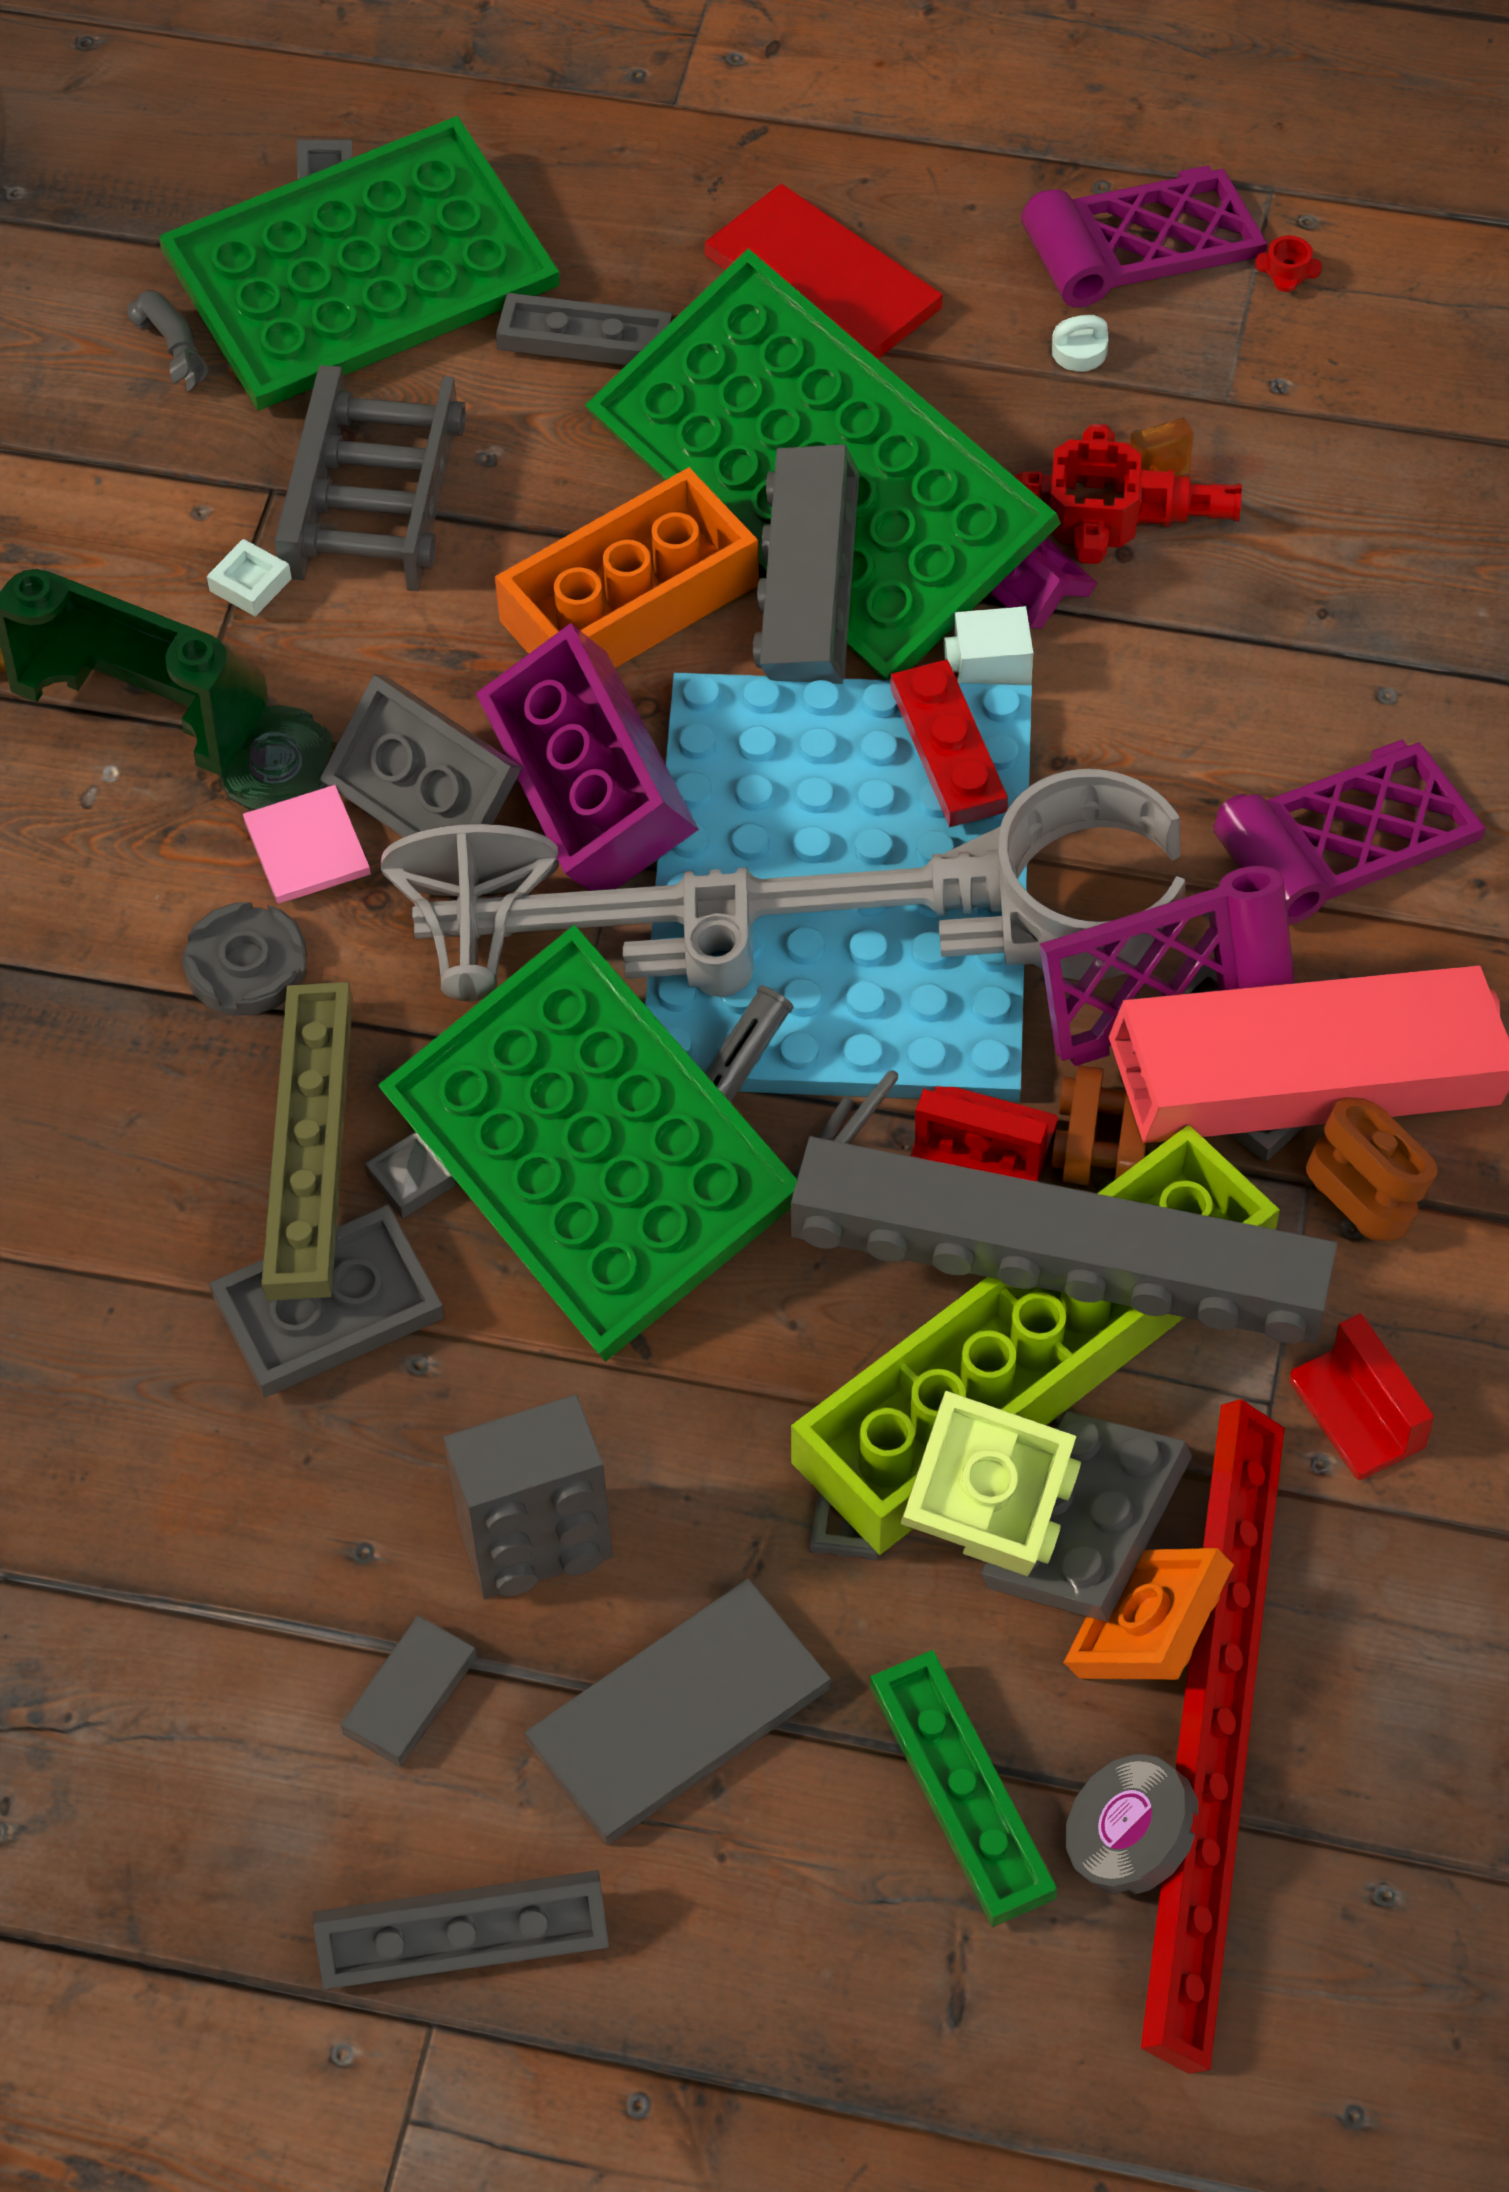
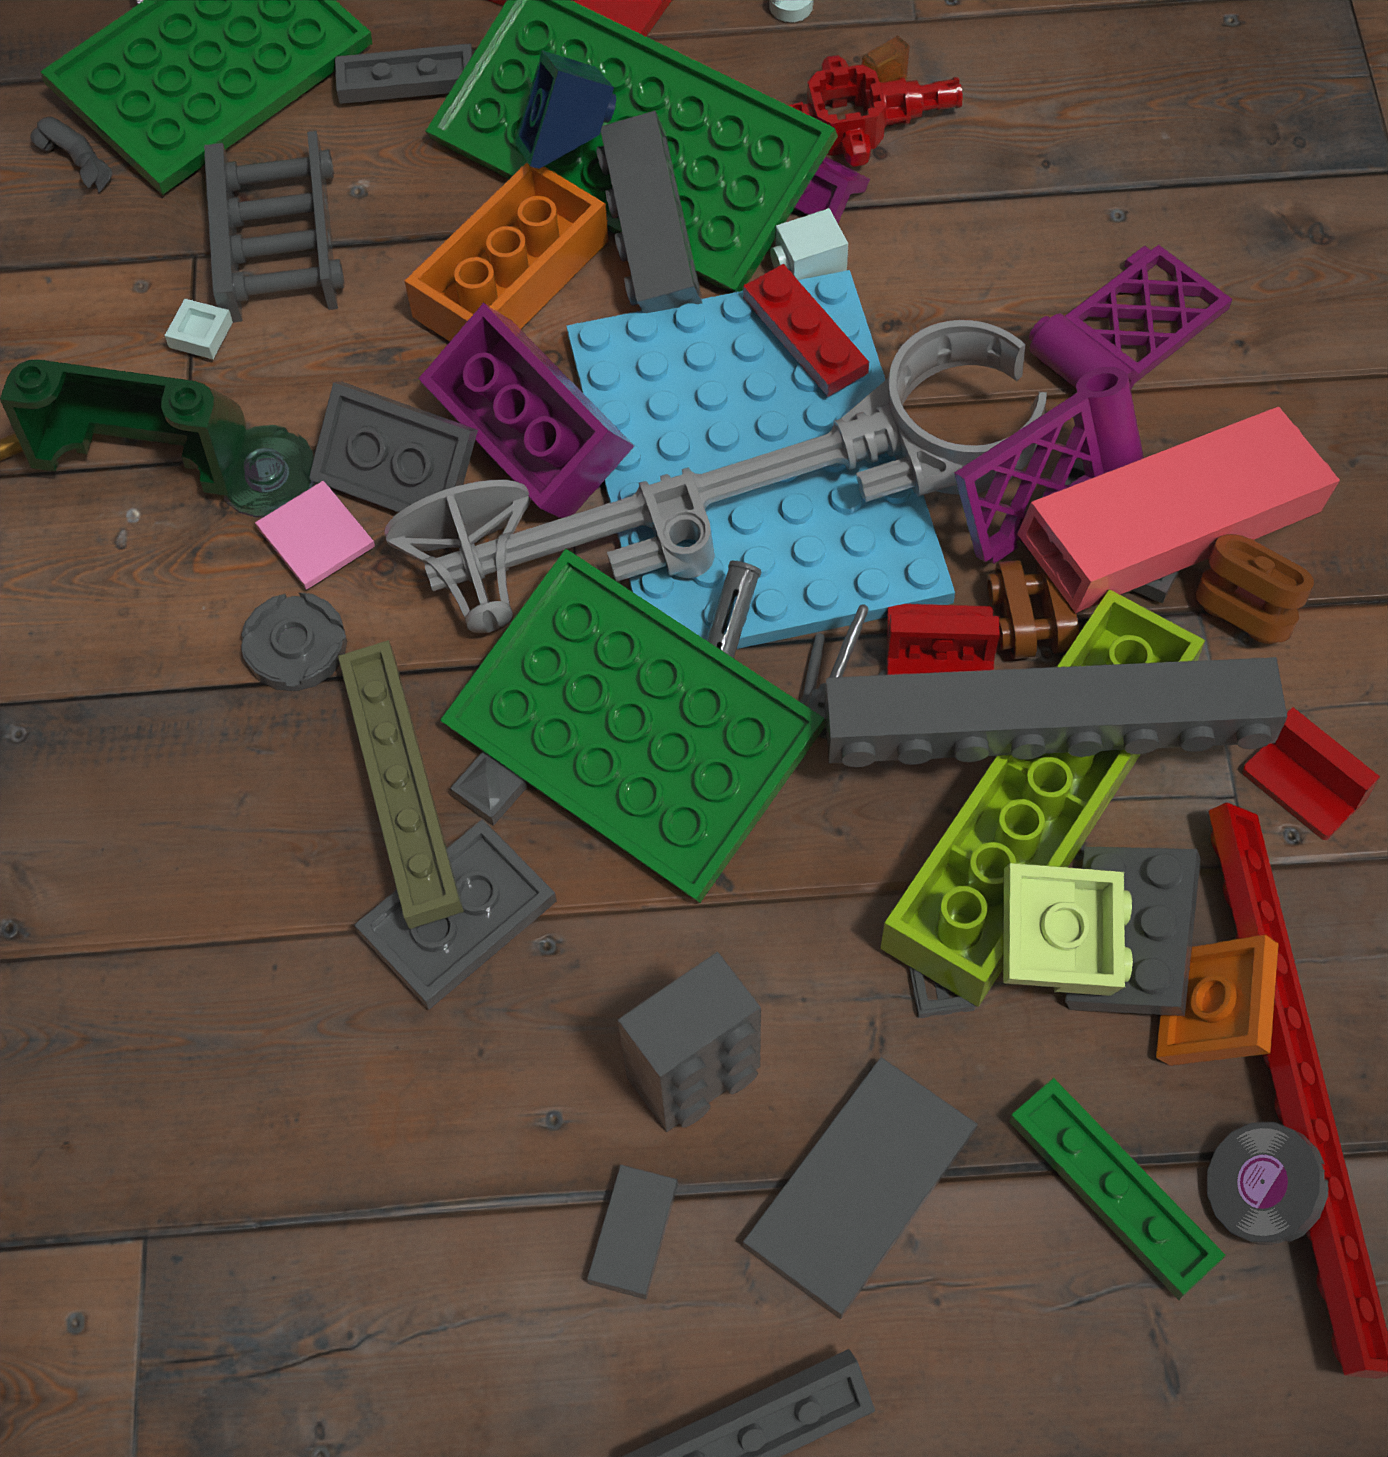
camera: 15 degrees left, 5 degrees up
(742, 417) = (563, 109): none -> dark blue slope

